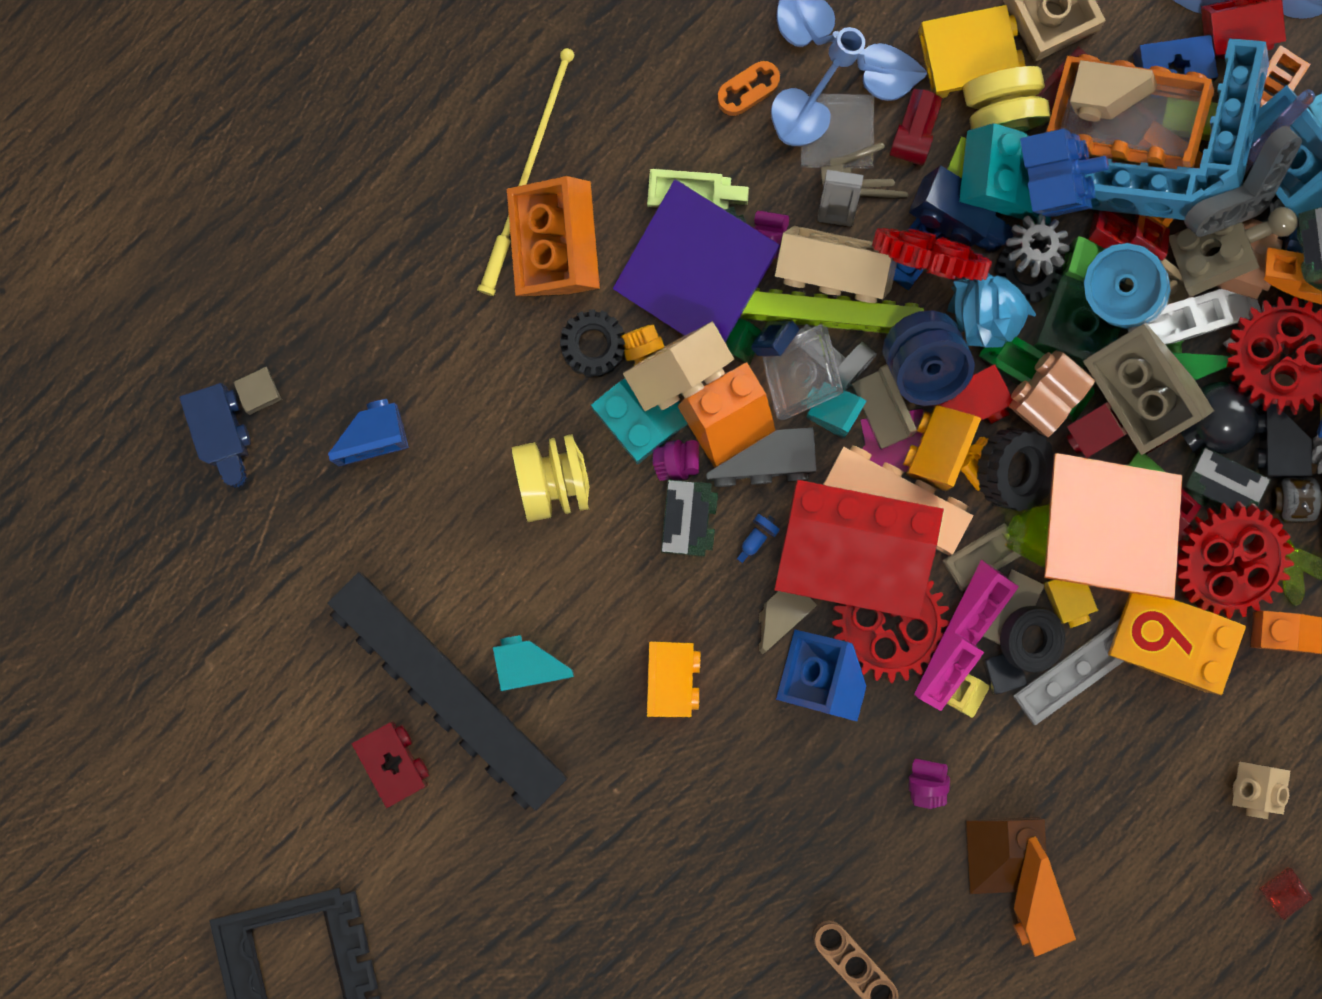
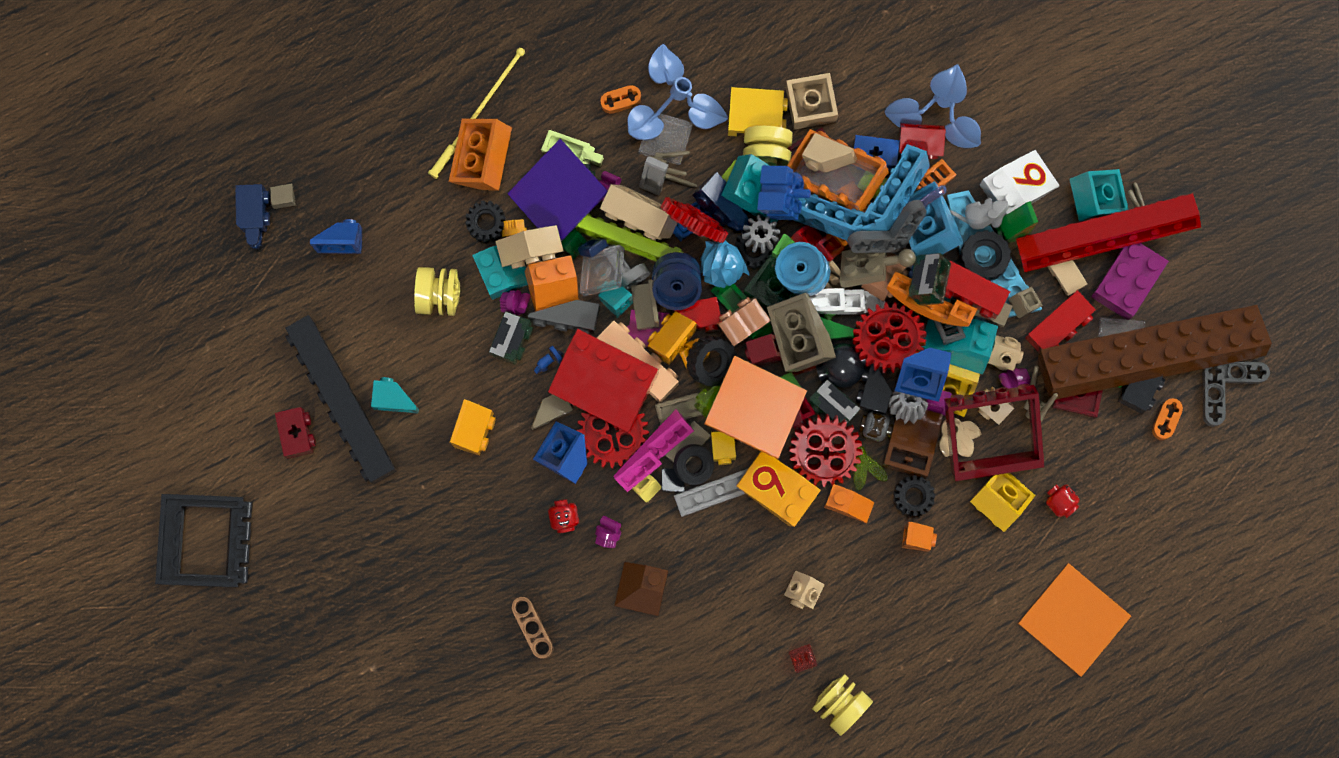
camera: 20 degrees right, 5 degrees down
(852, 777) = (563, 516): none -> red head
(914, 135) = (709, 153): dark red piece -> none
(1040, 905) = (650, 622): orange slope -> none

